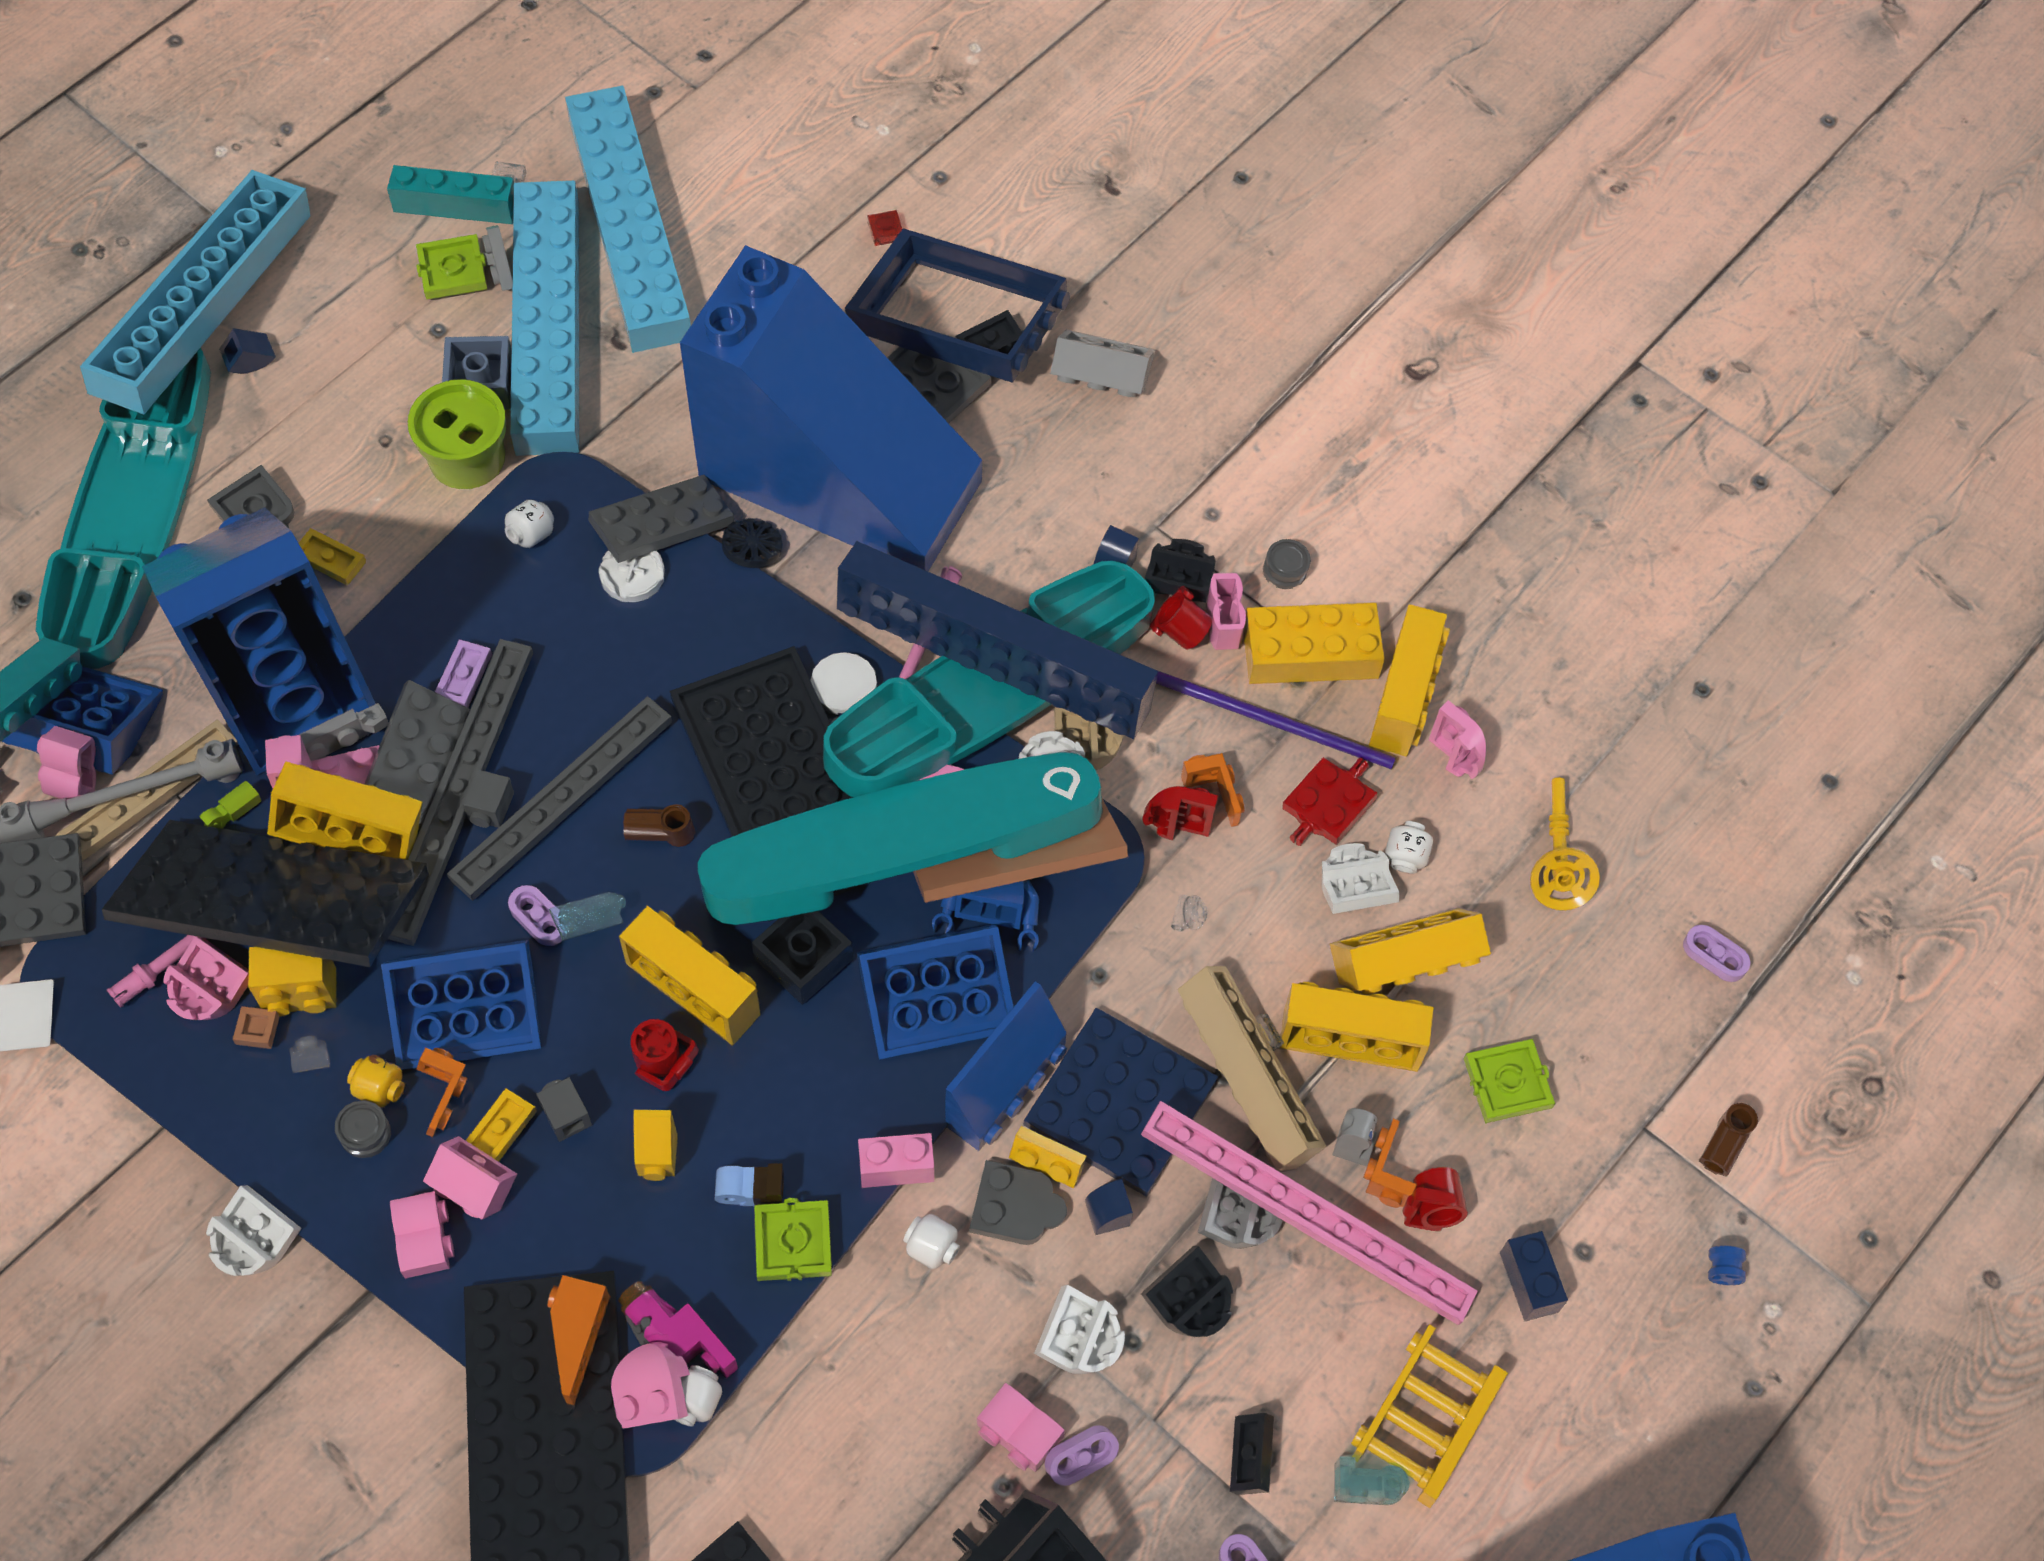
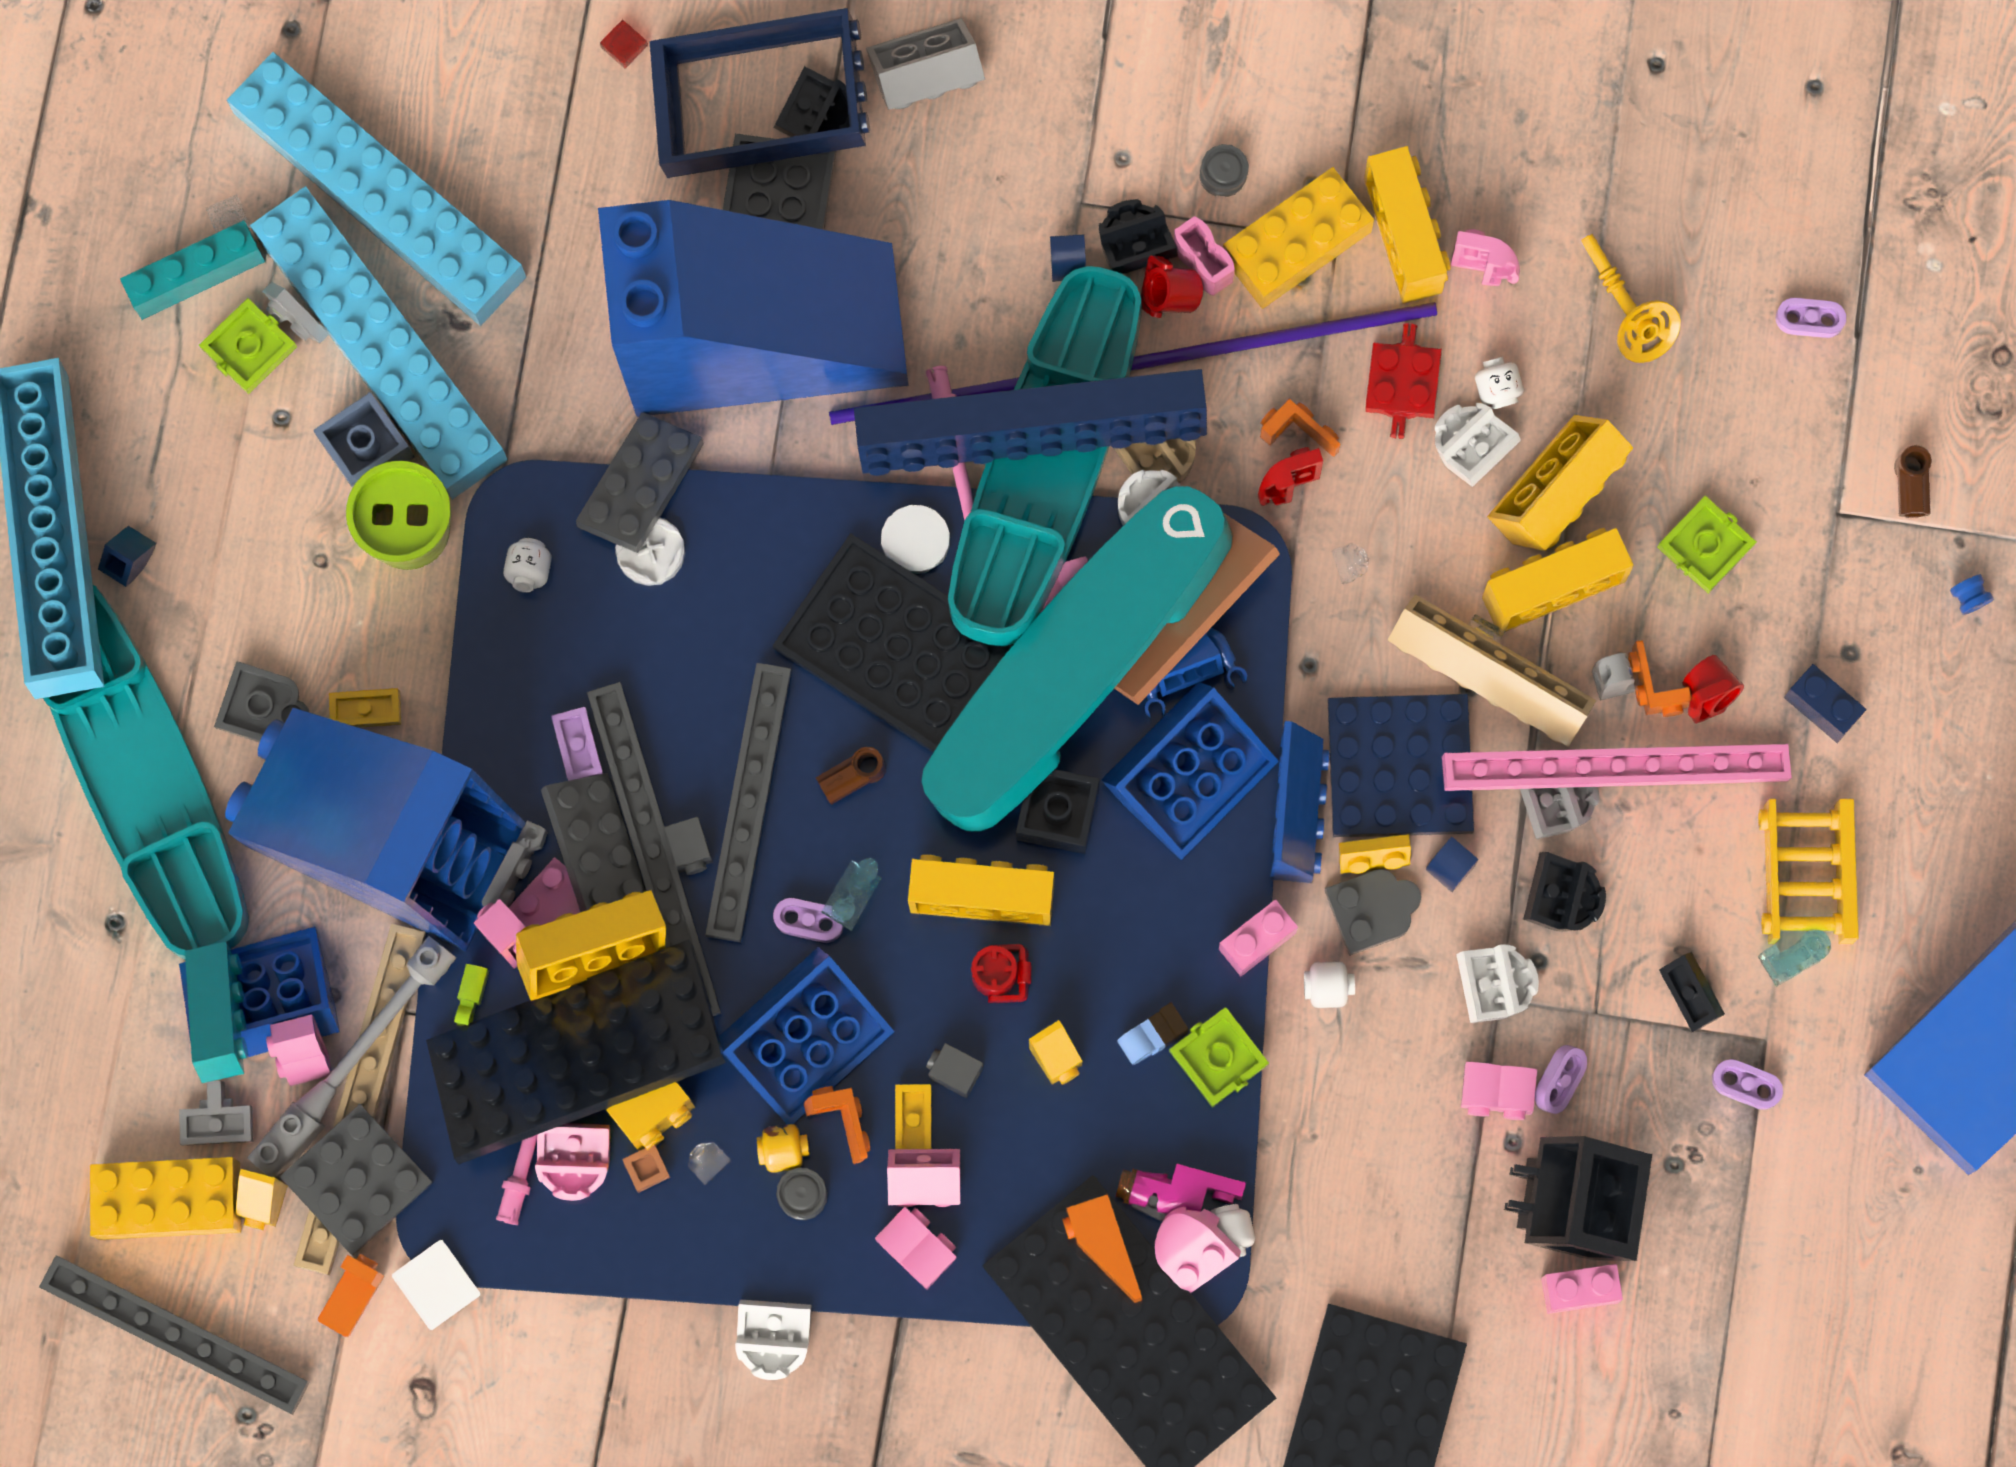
camera: 25 degrees left, 15 degrees up
(752, 543) = (734, 452): black wheel -> none

